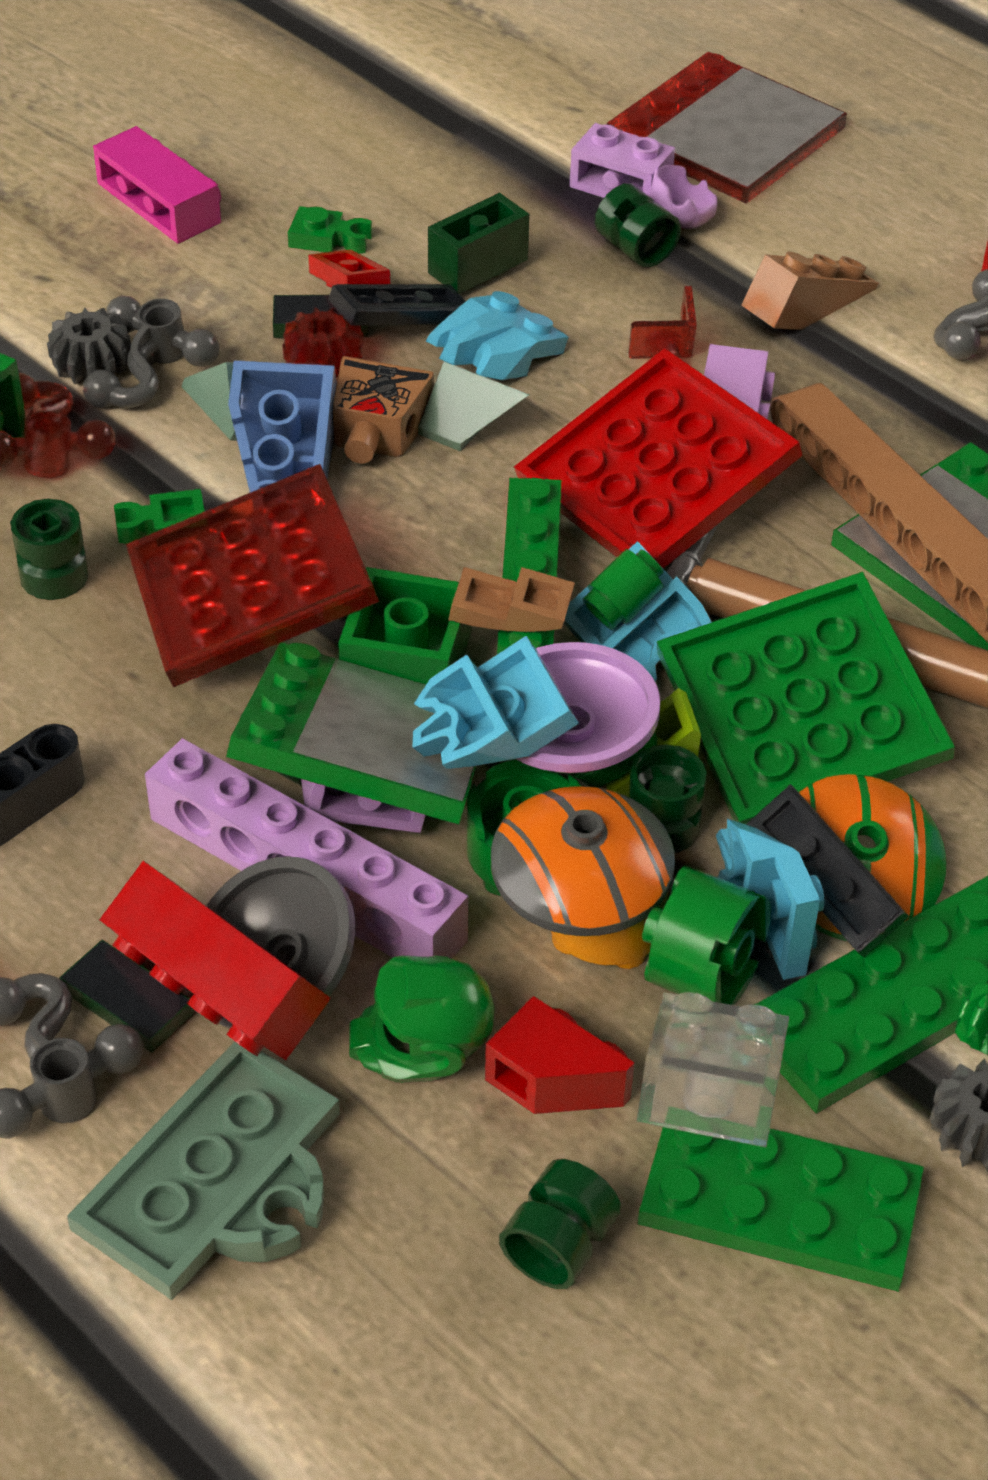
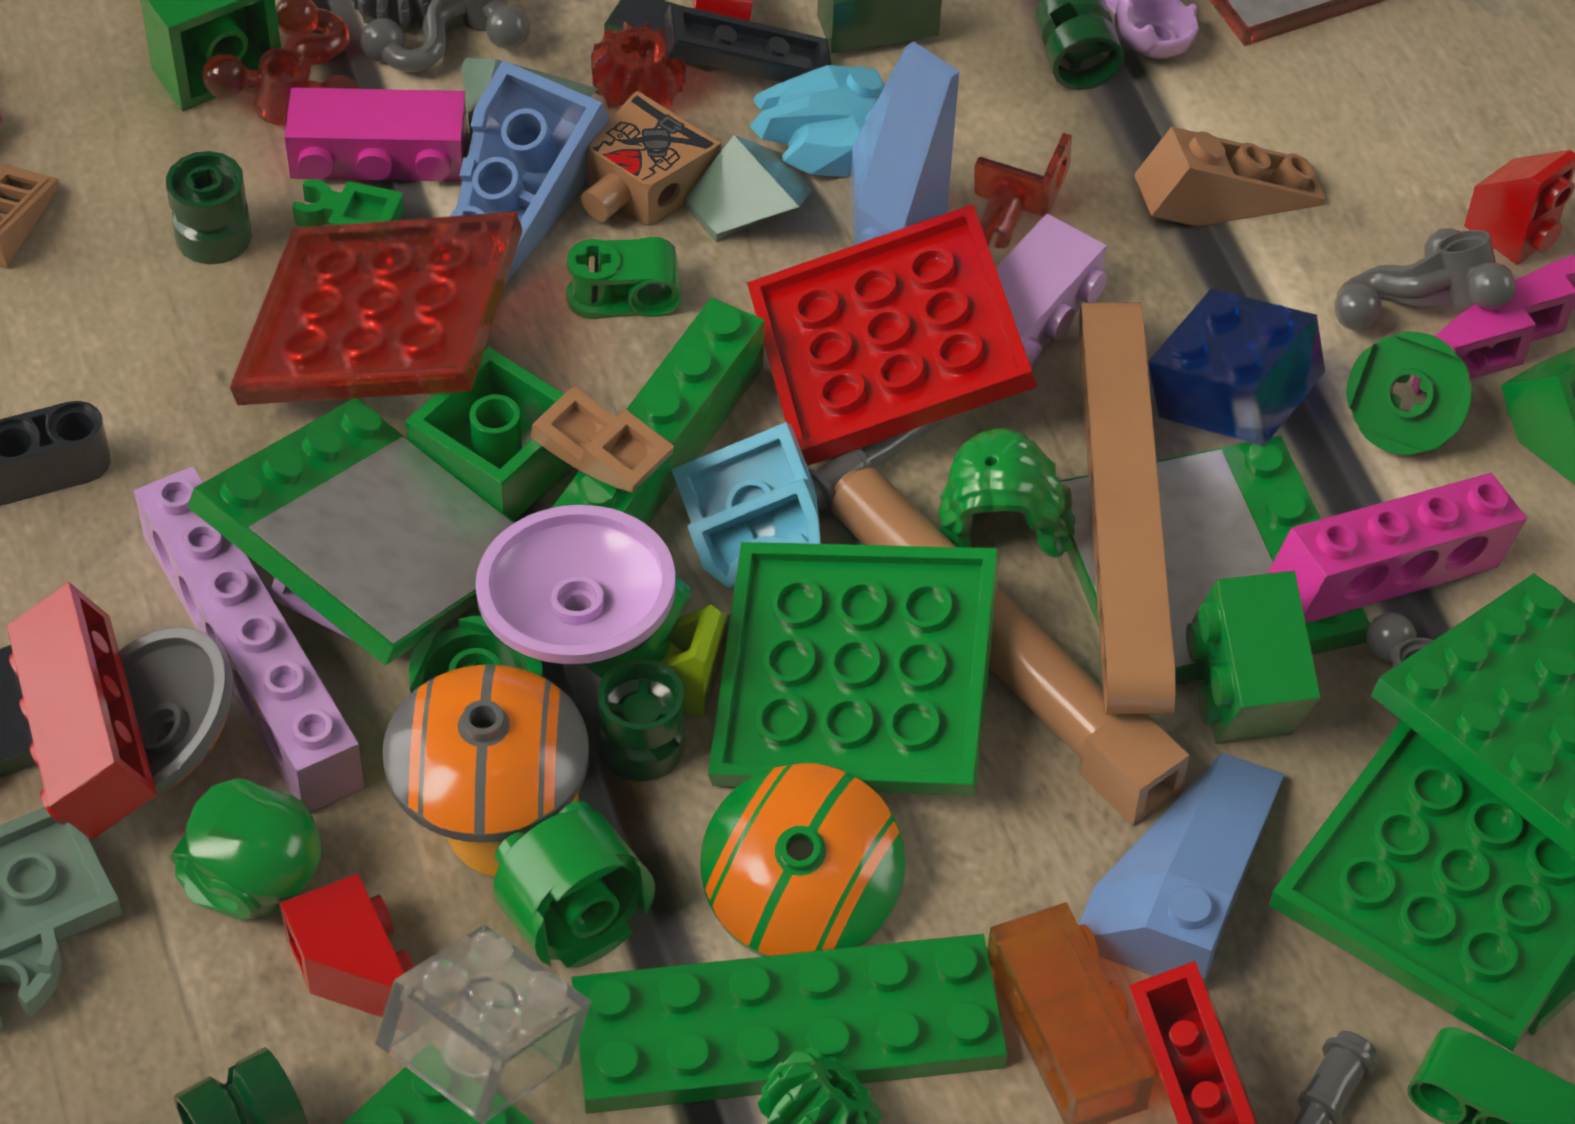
camera: 25 degrees right, 5 degrees up
(148, 455) = (376, 134): none -> dark pink brick
(421, 491) = (629, 276): none -> green piece
(492, 709) = (478, 556): medium azure plate -> none
(591, 325) = (905, 147): none -> medium blue wedge
(624, 588) = (739, 470): green brick -> none
(779, 874) = (668, 852): medium azure plate -> none
(817, 524) = (1007, 473): none -> green hair
(852, 895) = (738, 865): black tile -> none
(919, 399) = (1237, 366): none -> clear blue brick

